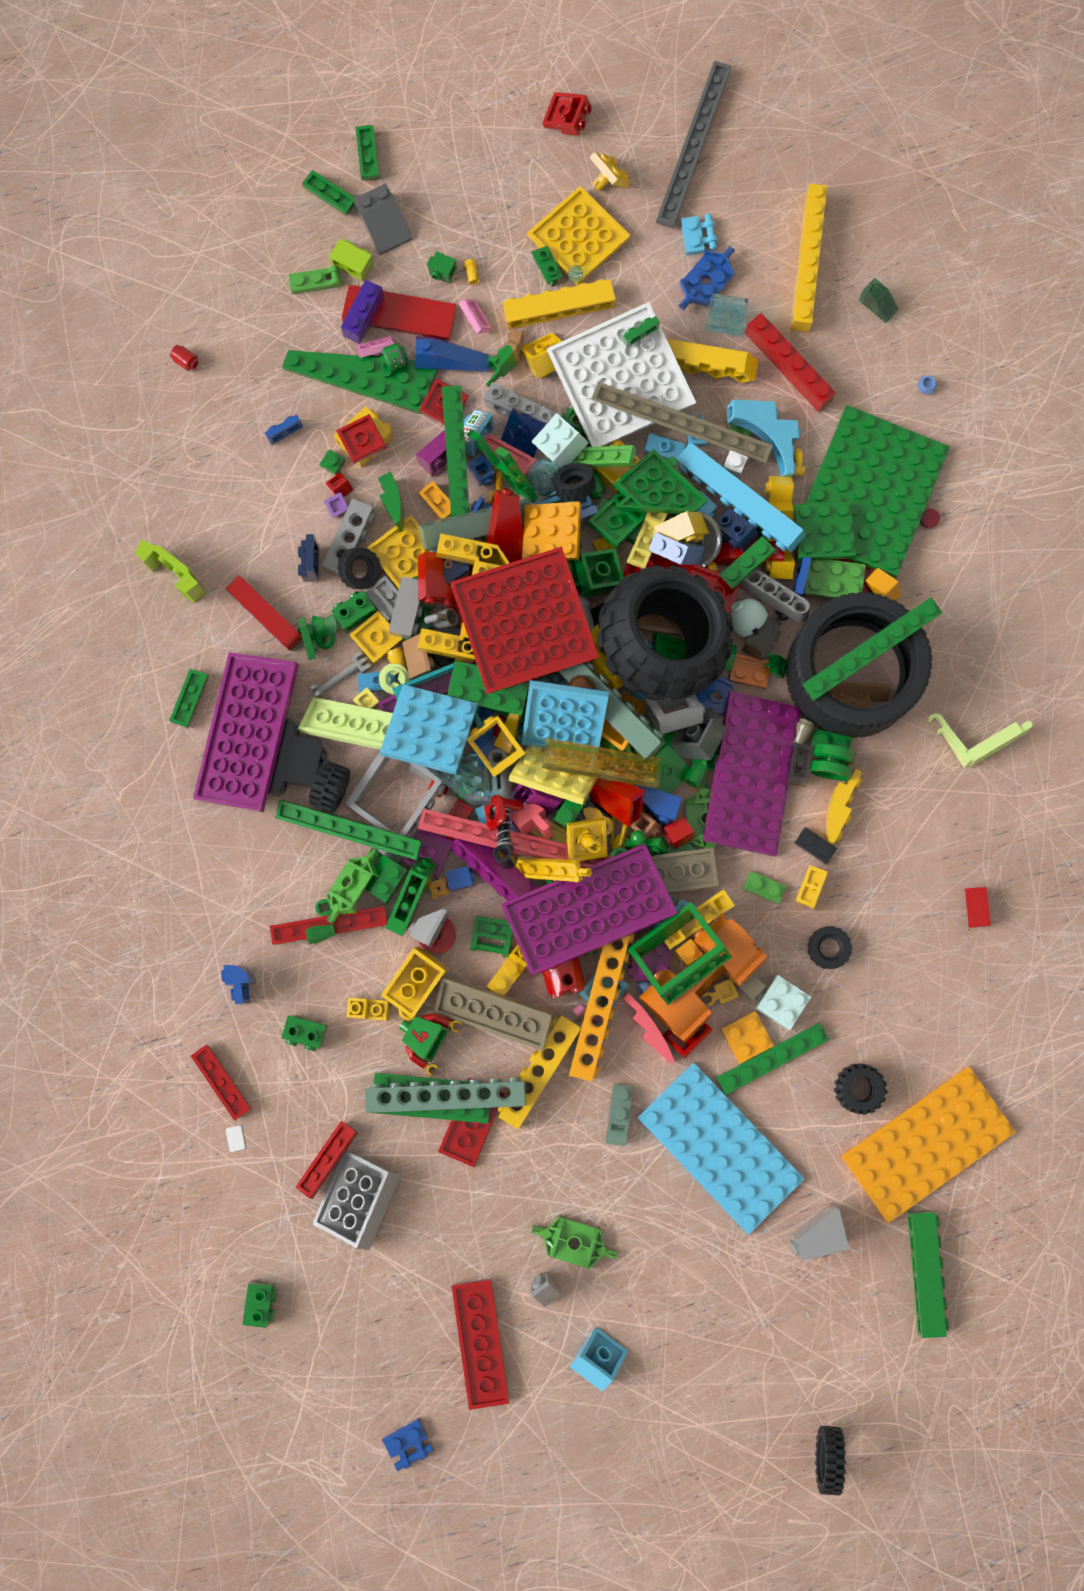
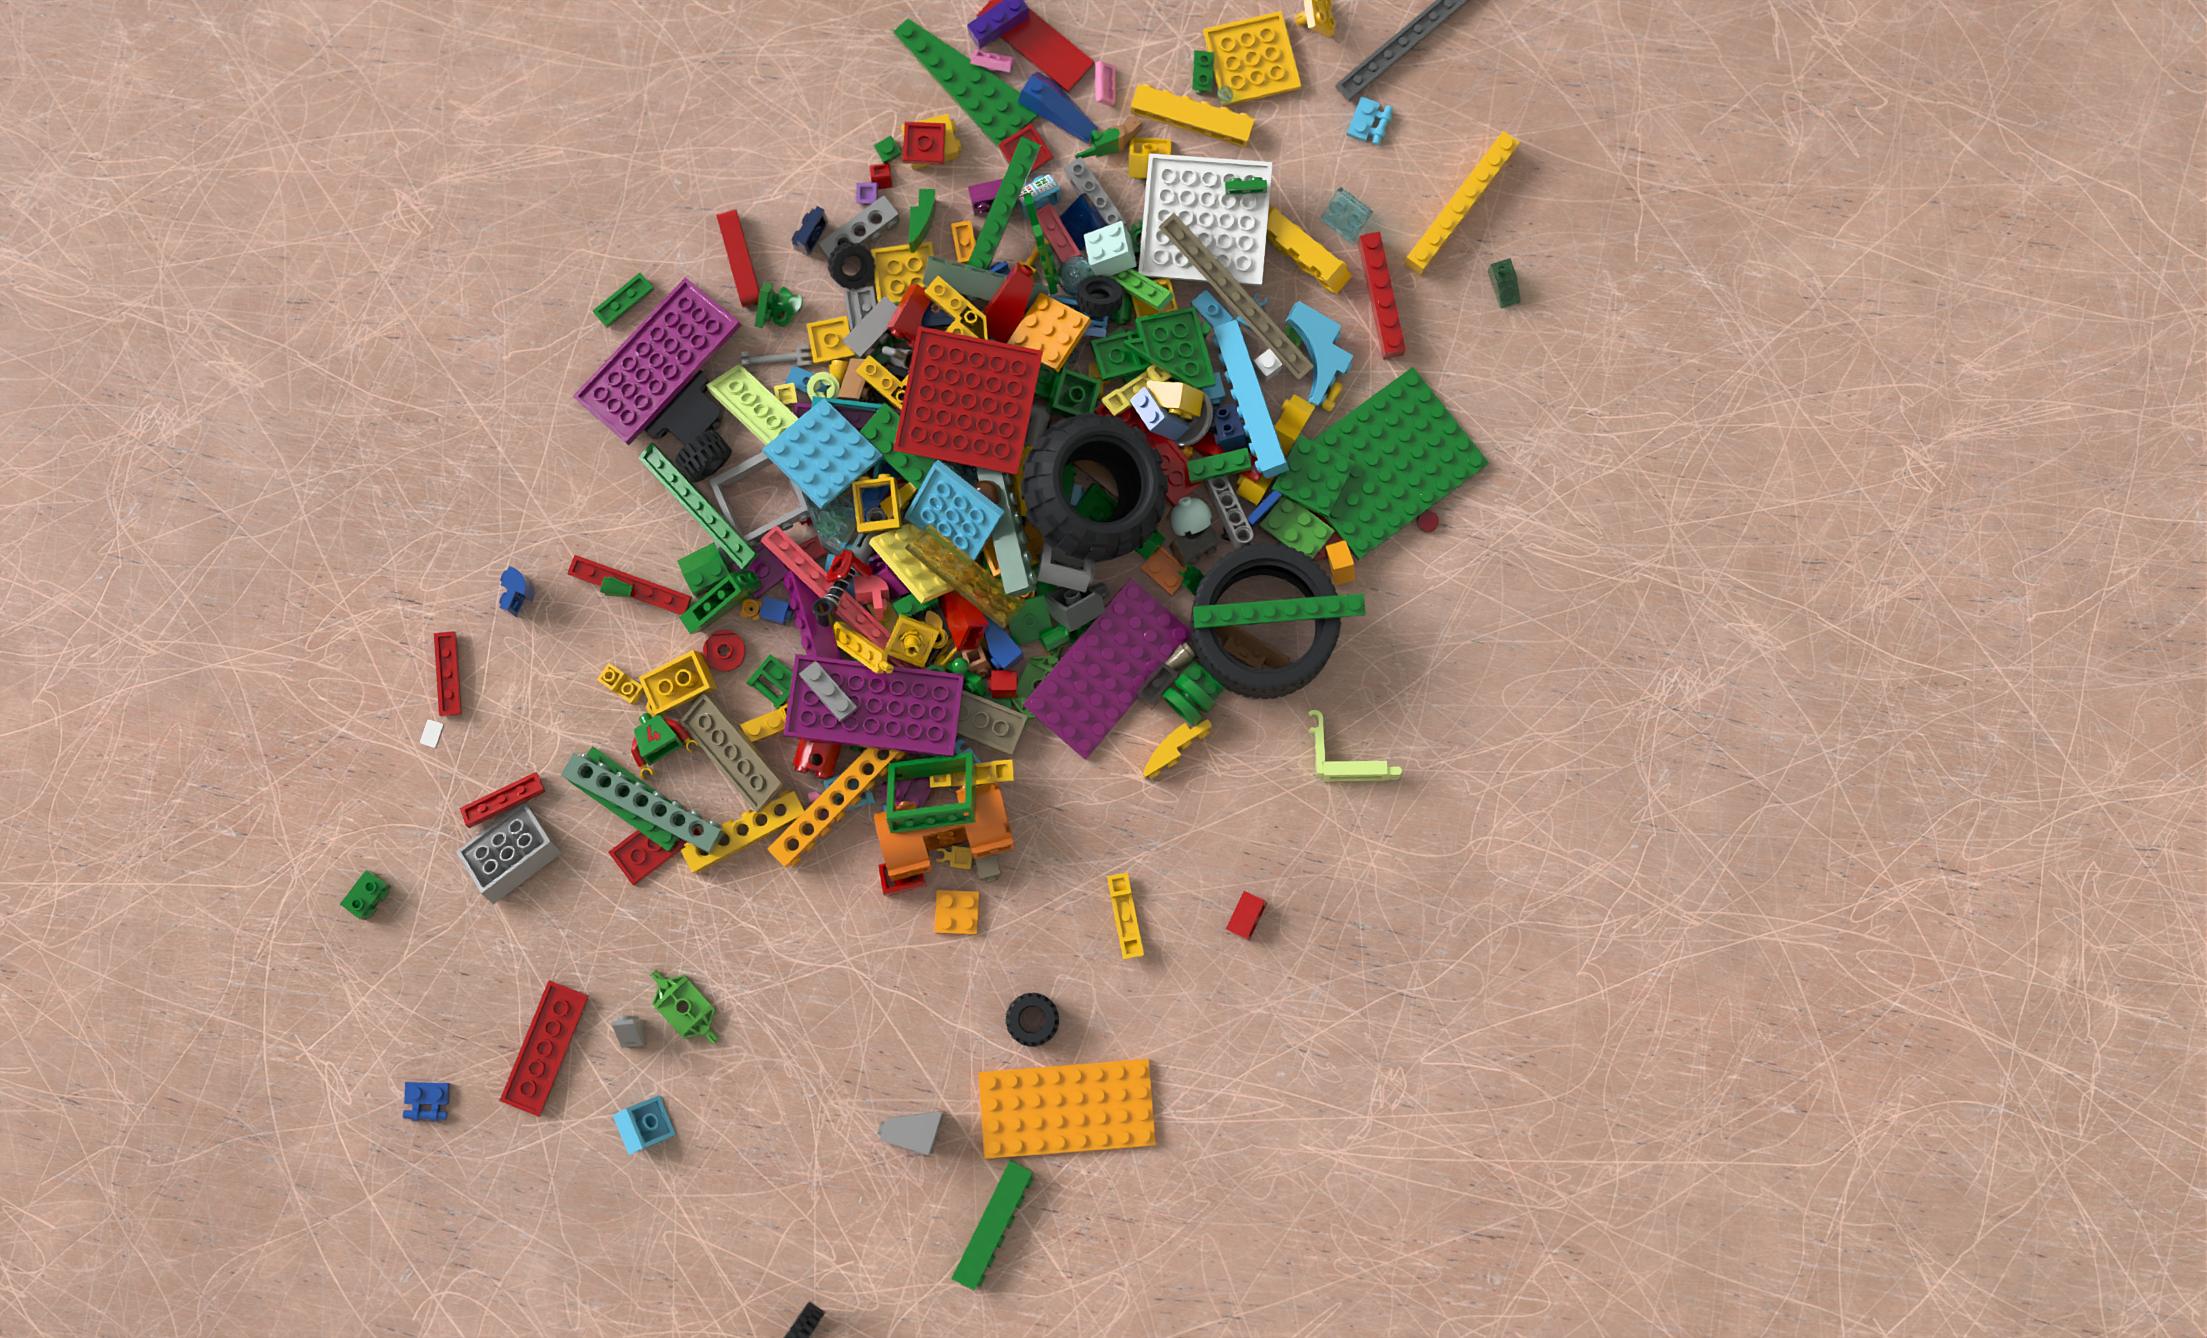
camera: 30 degrees right, 0 degrees up
(153, 556) = (665, 148): lime plate -> none
(278, 432) = (867, 92): blue plate -> none
(304, 1032) = (549, 671): green brick -> none
(318, 909) = (638, 561): green bush -> none
(353, 611) = (823, 303): green brick -> none
(359, 872) = (684, 552): bright green plate -> none
(393, 357) = (1002, 81): green head -> none
(428, 927) = (718, 639): light grey slope -> none
(441, 267) = (1101, 18): green brick -> none
(472, 273) = (1129, 34): yellow pin -> none
(480, 465) = (1023, 230): blue brick -> none
(546, 919) = (828, 691): none -> light grey plate
(619, 1115) = (794, 914): sand green plate -> none
(652, 1034) = (869, 858): coral slope -> none
(688, 952) = (946, 797): light orange brick -> none
(711, 266) = (1362, 158): blue plate -> none
(720, 1148) = (870, 999): medium azure plate -> none
(721, 685) = (1122, 565): blue plate -> none
(764, 887) = (1056, 782): bright green plate -> none
(772, 1058) = (968, 945): green plate -> none
(782, 1002) = (1007, 898): light aqua brick -> none
(812, 887) = (1100, 807): yellow hinge -> none
(815, 845) = (1128, 771): black plate -> none
(844, 947) = (1069, 865): black tyre -> none
(883, 963) = (1125, 916): none -> yellow slope
(927, 385) = (1504, 391): medium blue plate -> none

